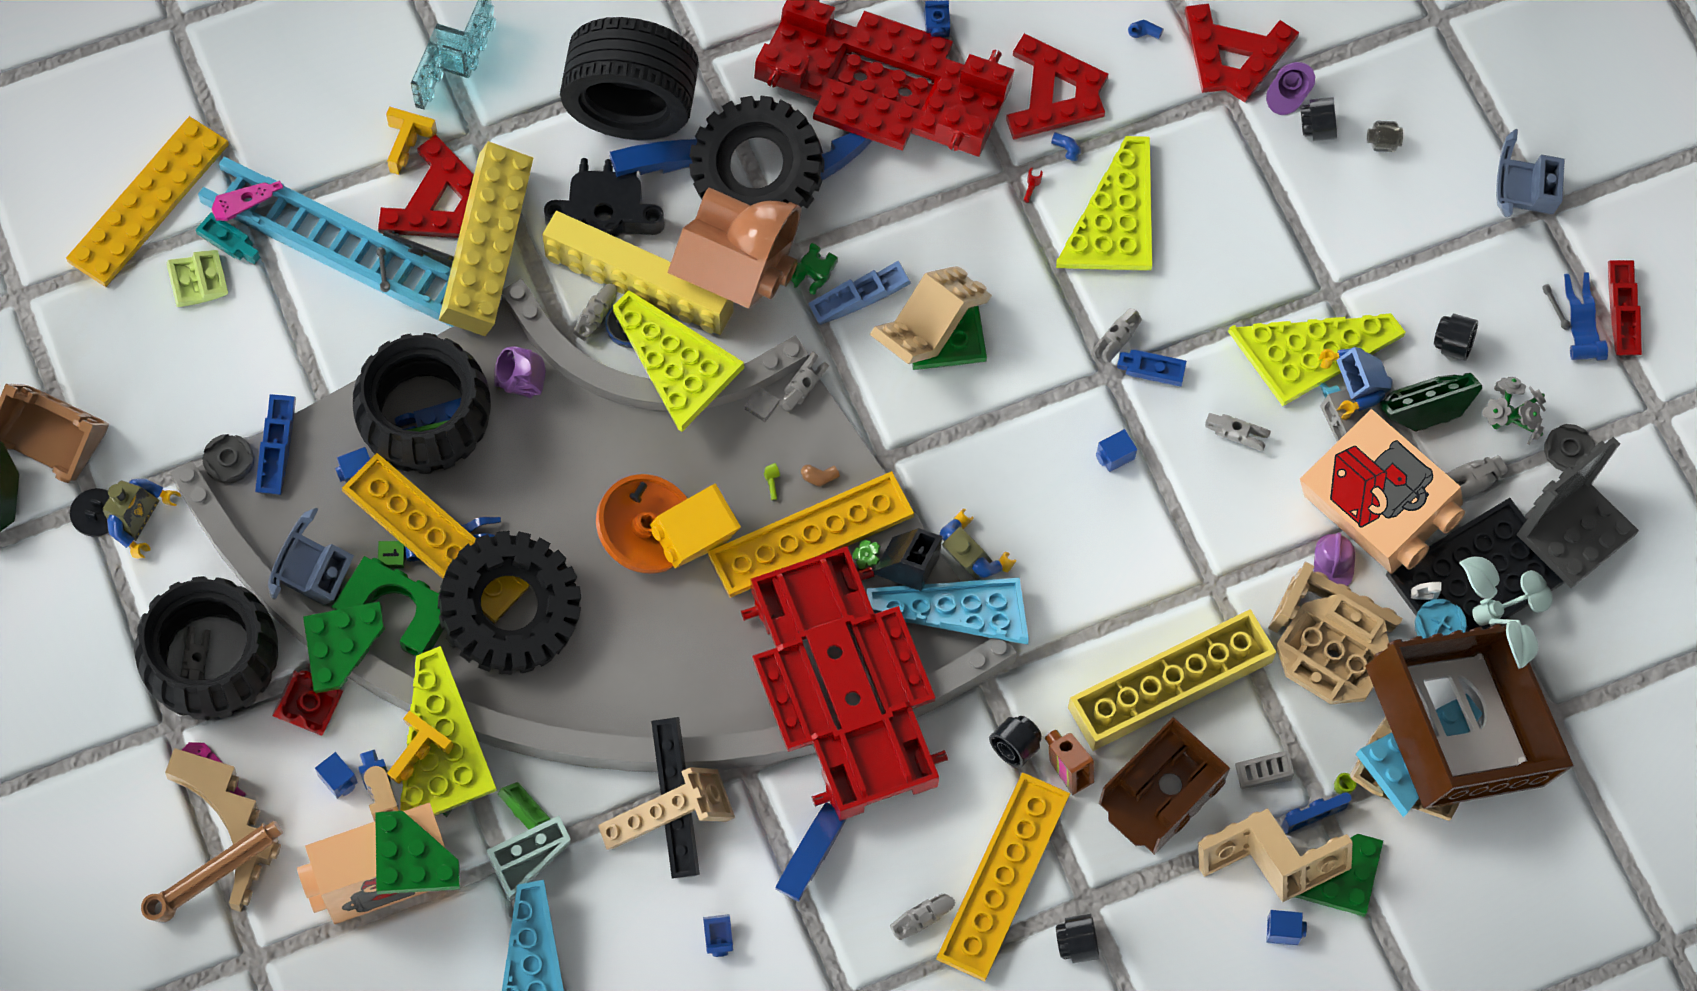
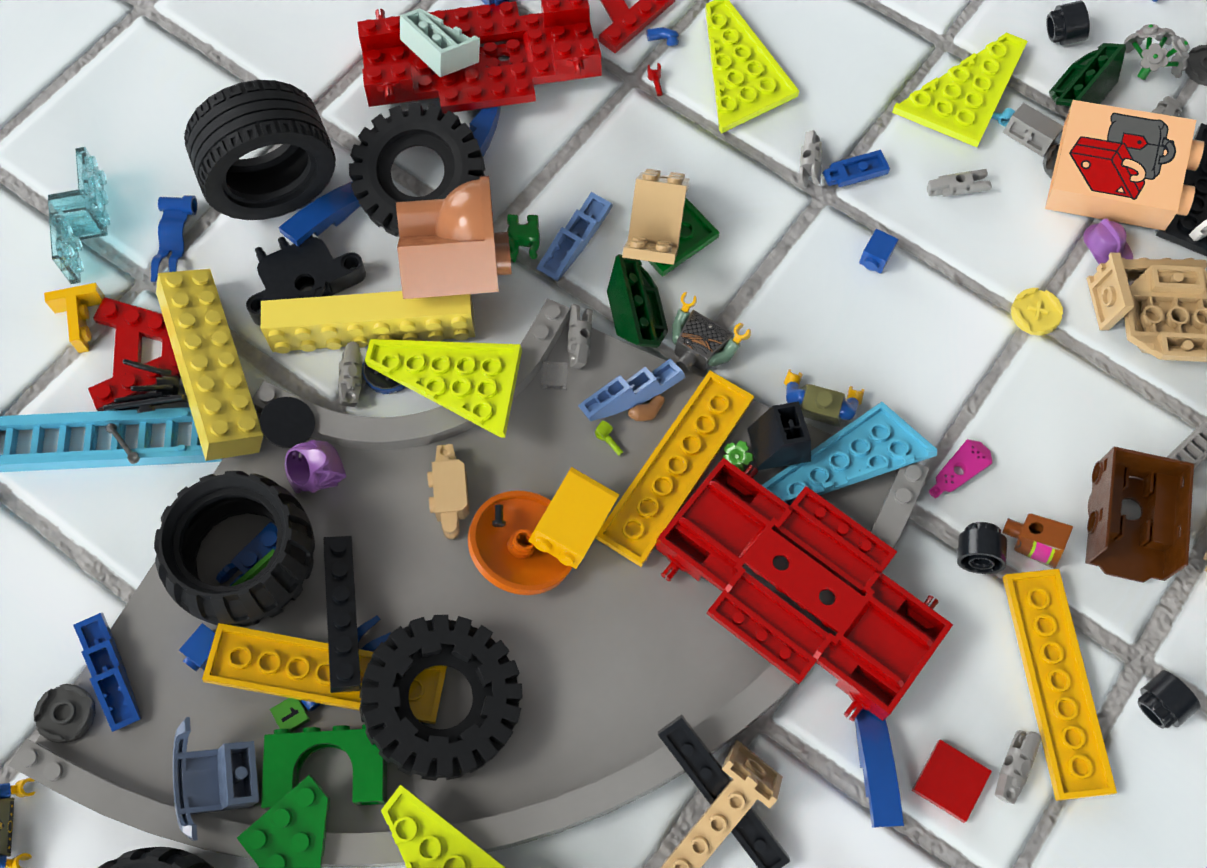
camera: 30 degrees left, 0 degrees up
(442, 239) = (164, 386): none -> black plant
(473, 498) = (341, 615): none -> black plate
(519, 324) = (287, 422): none -> black piece
(522, 103) = (171, 230): none -> blue flag
(615, 451) = (449, 490): none -> tan hinge
(805, 451) = (623, 395): none -> medium blue slope
(844, 53) = (437, 44): none -> light aqua wedge
(864, 897) = (951, 781): none -> red tile
(870, 384) = (636, 304): none -> dark green wedge
(905, 443) = (701, 340): none -> torso
(1062, 667) = (967, 461): none -> dark pink piece
(1171, 680) = (1067, 419): light yellow brick -> none
(1222, 580) = (1036, 311): none -> light yellow tile
(1363, 377) = (1027, 86): medium blue torso -> none

